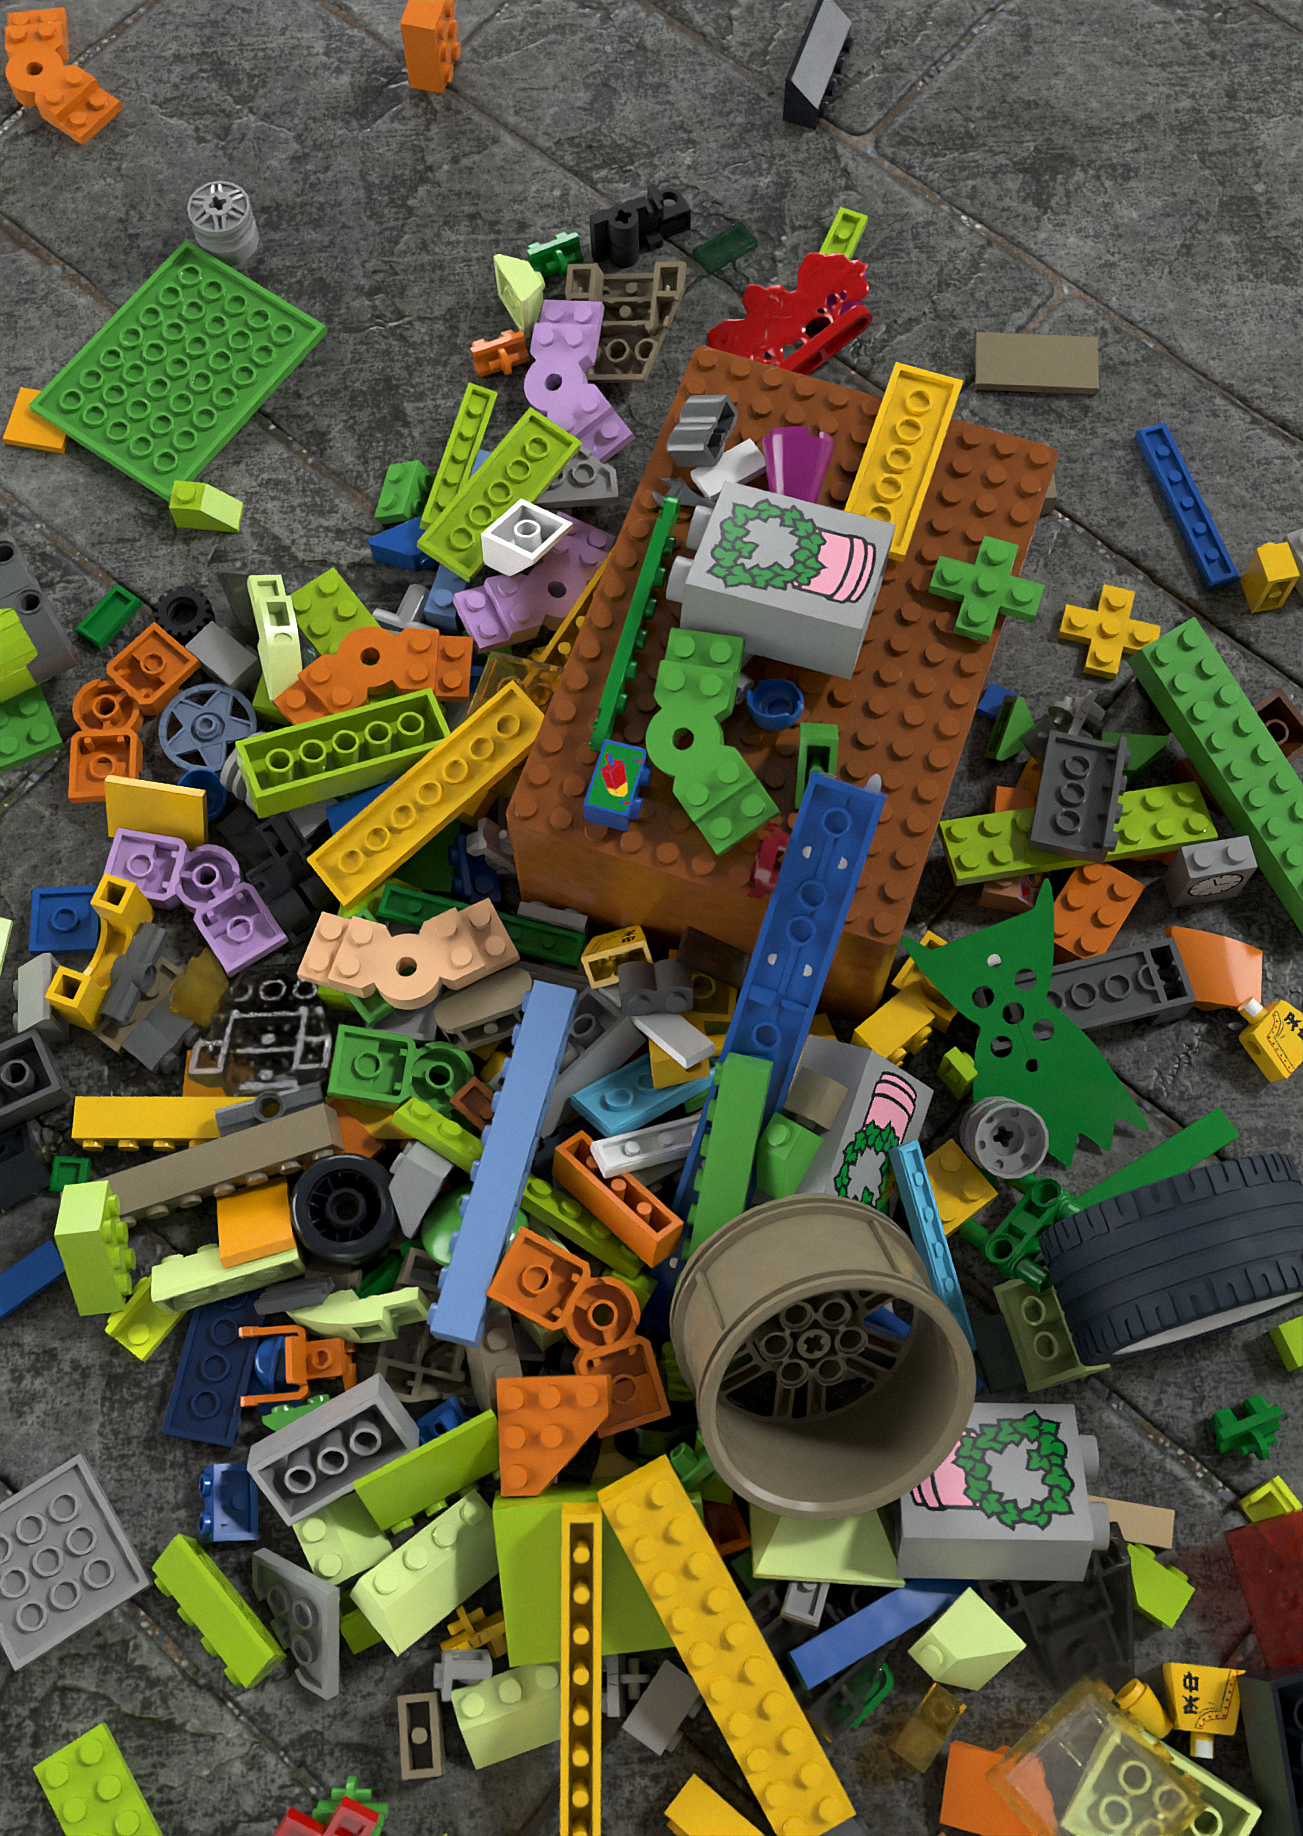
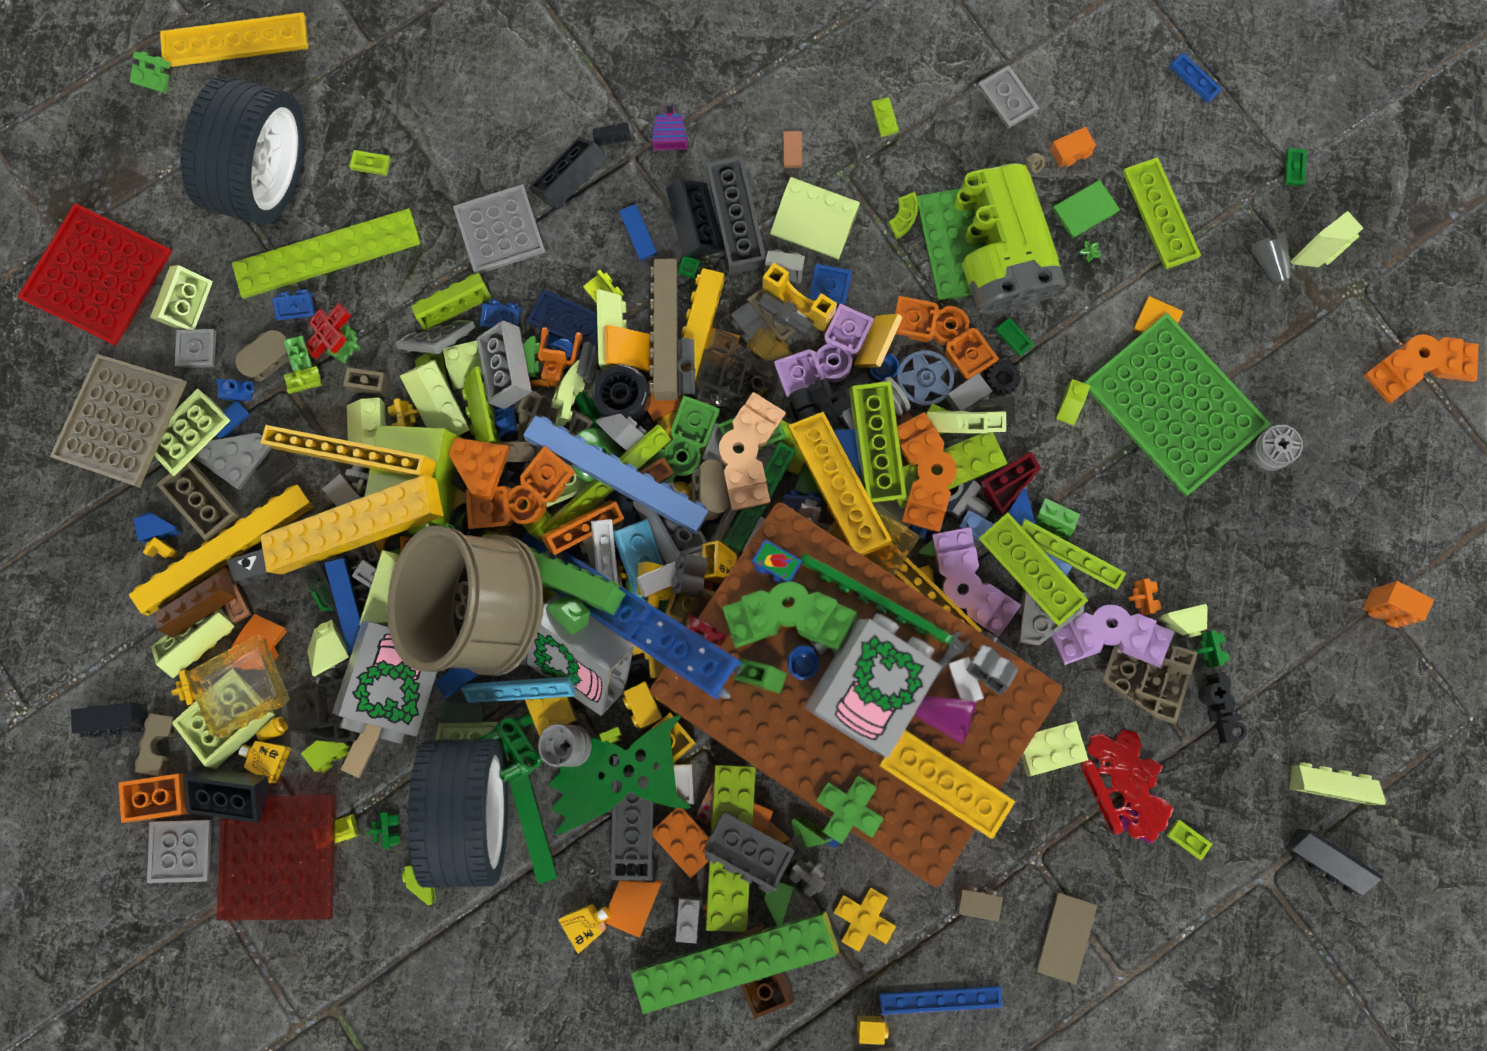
camera: 105 degrees right, 10 degrees up
(94, 1247) = (637, 268): lime brick -> none
(369, 571) = (1006, 483): none -> dark red wedge
(464, 1665) = (388, 405): light grey bracket -> none
(521, 537) = (993, 573): white slope -> none
(708, 76) = (1336, 785): none -> yellowish green slope
(725, 248) = (1199, 761): clear green tile -> none
(815, 1099) = (592, 635): dark tan brick -> none
(927, 1727) = (294, 618): clear yellow slope -> none

